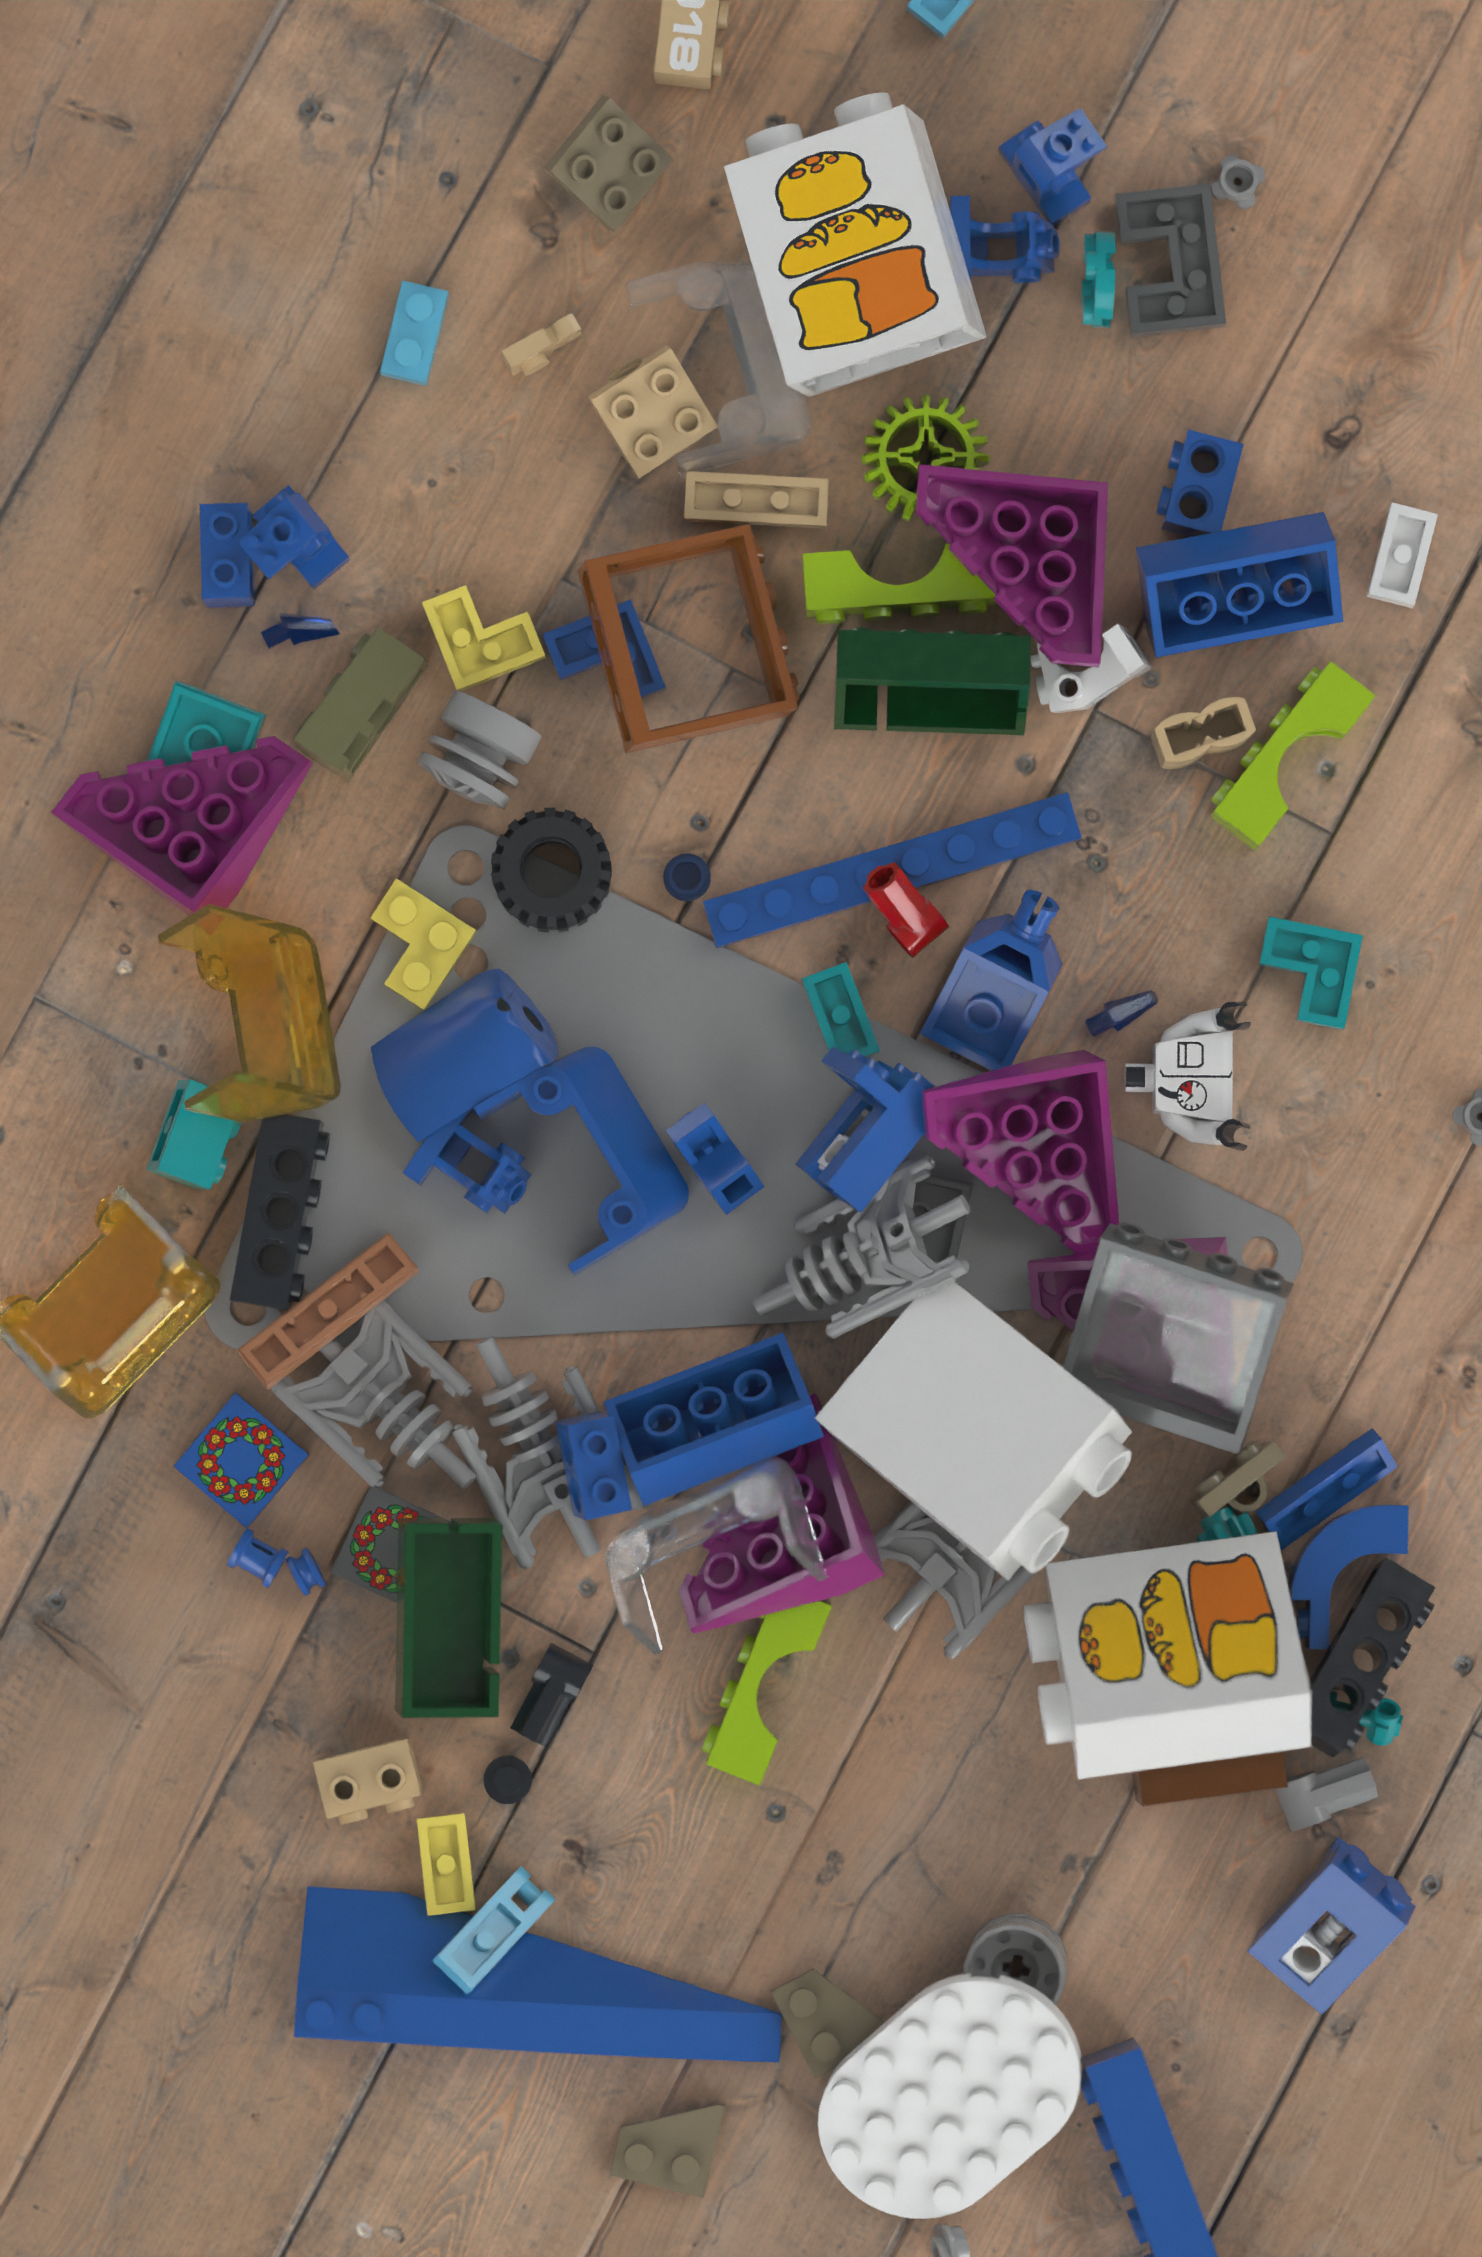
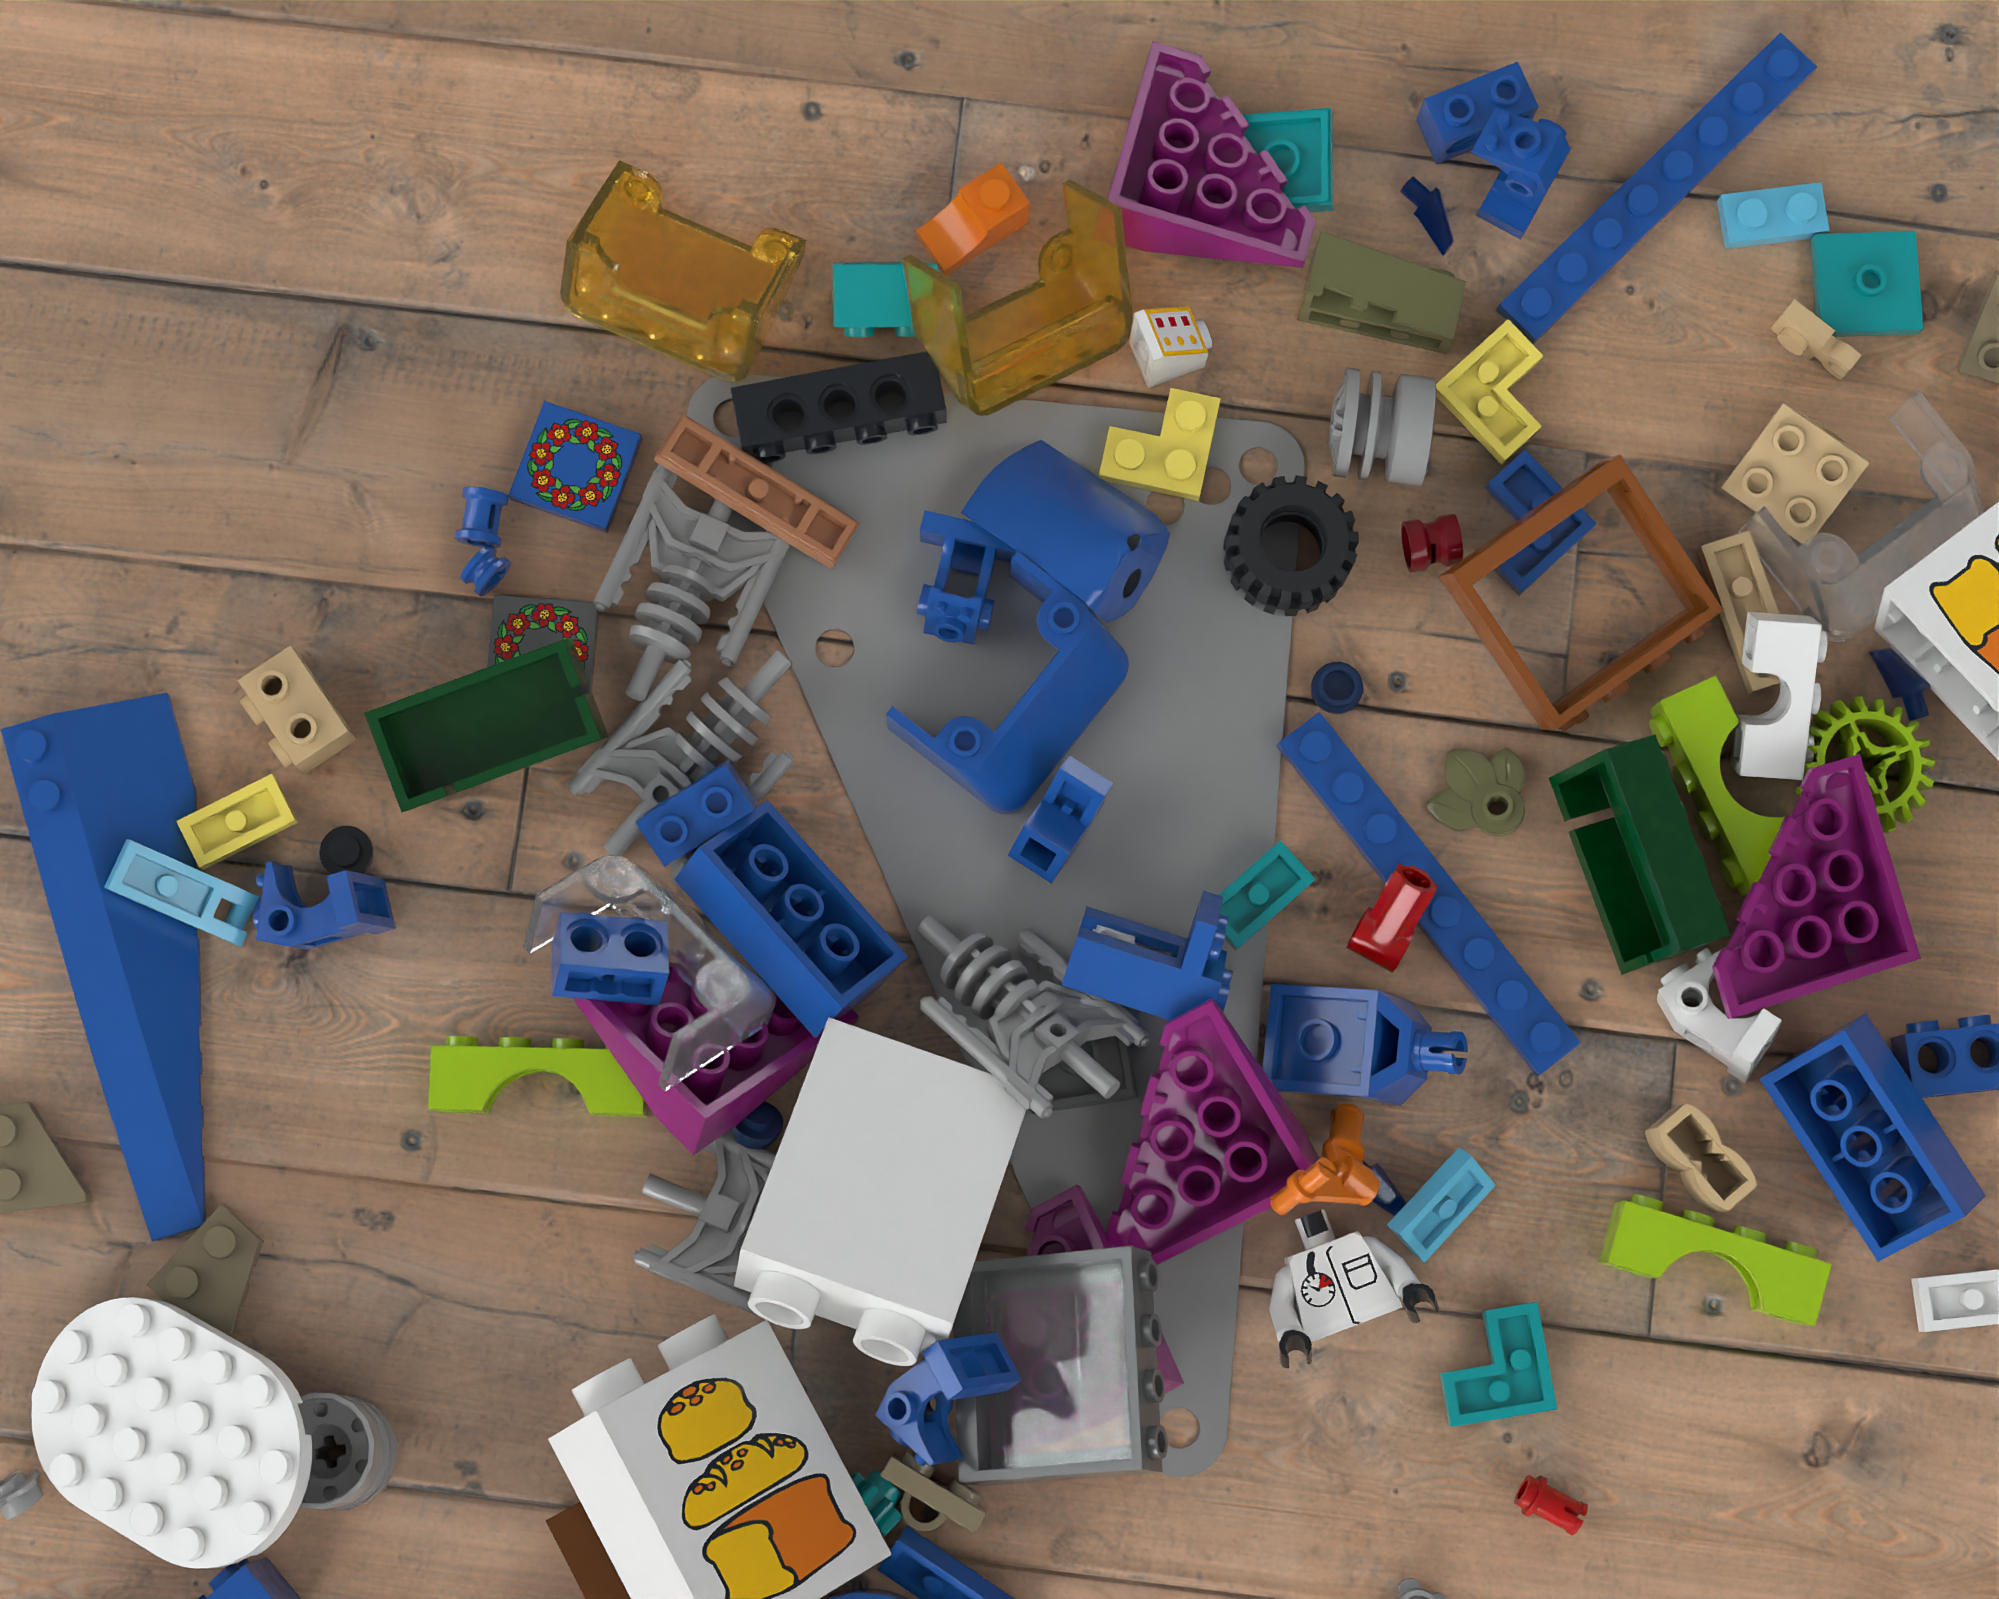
camera: 65 degrees right, 5 degrees down
(155, 1031) = (975, 219): none -> orange arch
(333, 903) = (1168, 343): none -> white slope
(351, 423) = (1656, 188): none -> blue plate
(506, 277) = (1867, 283): none -> teal plate
(554, 1687) = (462, 864): black piece -> none
(562, 1787) = (352, 908): none -> blue tile
(593, 746) = (1431, 542): none -> dark red wheel
(702, 1586) = (610, 958): none -> blue brick
(816, 790) = (1475, 786): none -> olive plate
(865, 393) = (1902, 682): none -> clear blue bar
(876, 525) = (1778, 739): none -> white arch
(879, 1511) = (759, 1127): none -> dark blue plate
(1110, 1039) = (1339, 1174): none -> orange pin
(1149, 1427) = (949, 1372): none -> blue tile
(1159, 963) = (1441, 1204): none -> medium azure plate
(1437, 972) = (1550, 1504): none -> red pin

